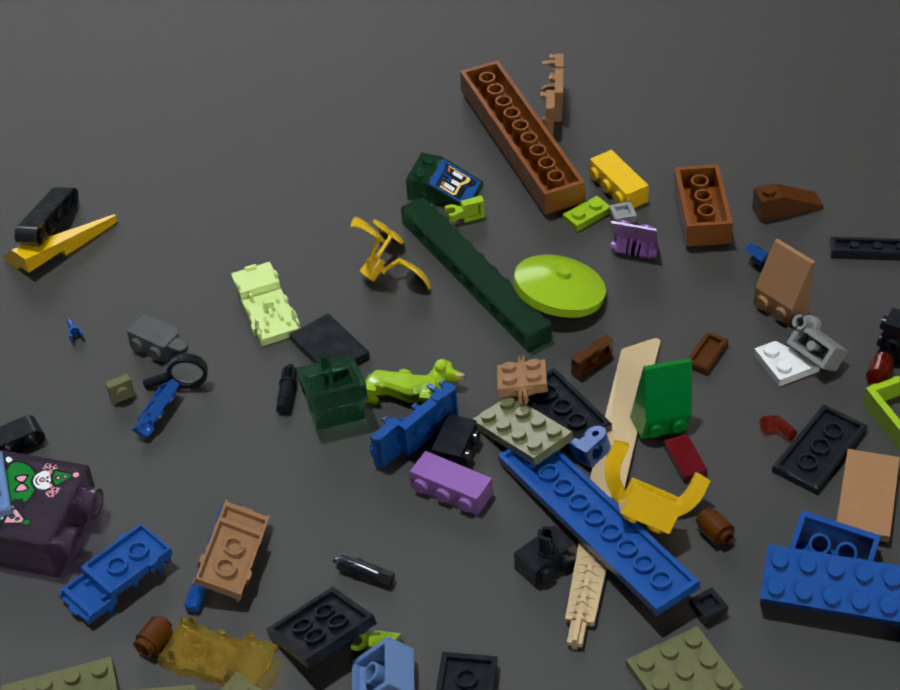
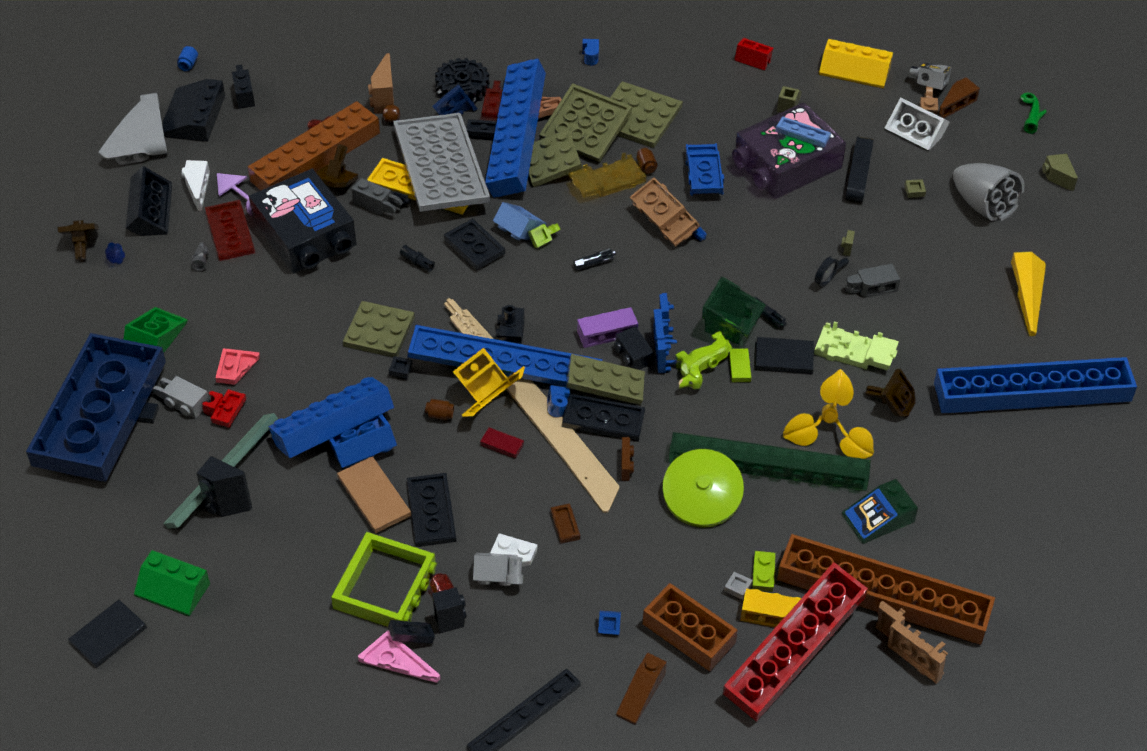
camera: 130 degrees right, 5 degrees up
(46, 216) = (1055, 288): black beam -> none
(74, 330) = (926, 256): blue hand -> none
(154, 408) = (813, 246): blue hinge -> none
(194, 174) = (1034, 385): none -> blue brick
(302, 236) = (897, 394): none -> dark brown piece
(321, 627) = (573, 213): black plate -> none
(386, 359) = (740, 365): none -> lime tile
(470, 210) = (836, 505): lime plate -> none
(522, 378) = (645, 409): medium nougat plate -> none
(634, 235) = (700, 560): medium lavender hinge -> none
(641, 133) = (794, 641): none -> red brick
(663, 399) = (541, 443): green slope -> none
(778, 425) = (471, 504): clear red arm -> none
(785, 283) = (557, 591): medium nougat slope -> none

